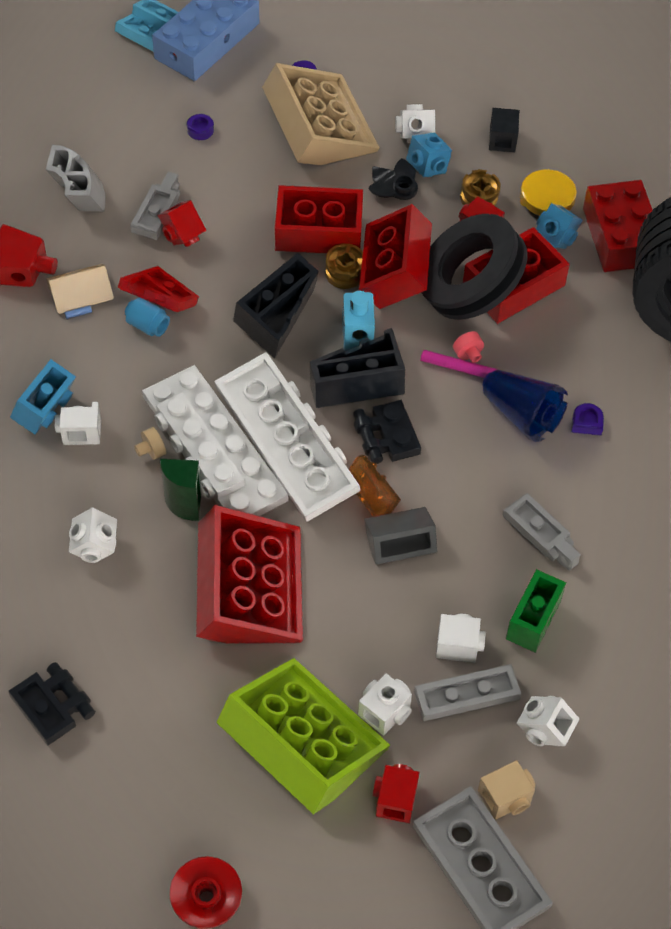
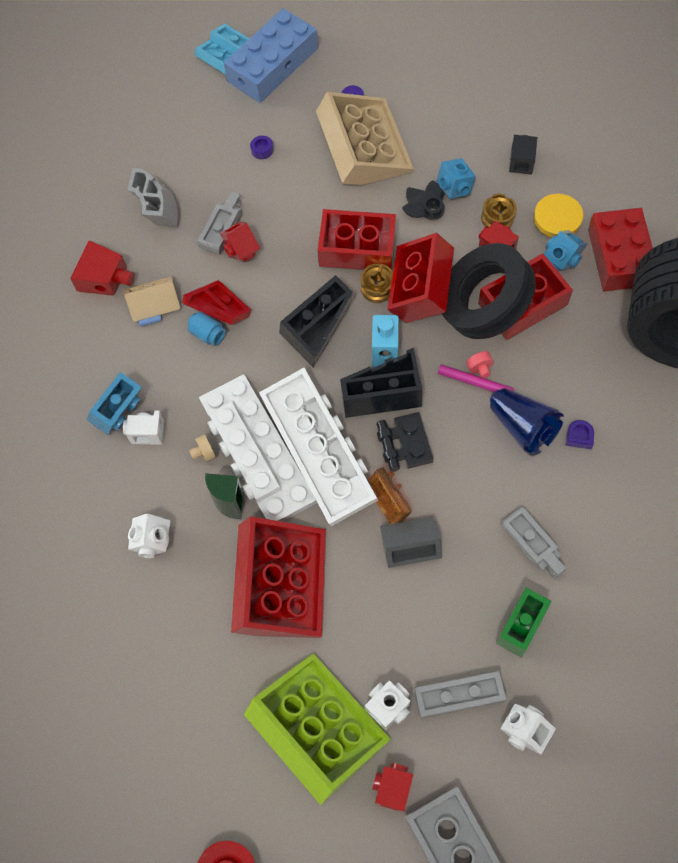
camera: 10 degrees right, 10 degrees up
(43, 708) = (100, 693): black plate -> none
(425, 119) = (446, 138): white brick -> none
(459, 638) = (456, 642): white brick -> none
(507, 790) = (489, 791): tan brick -> none

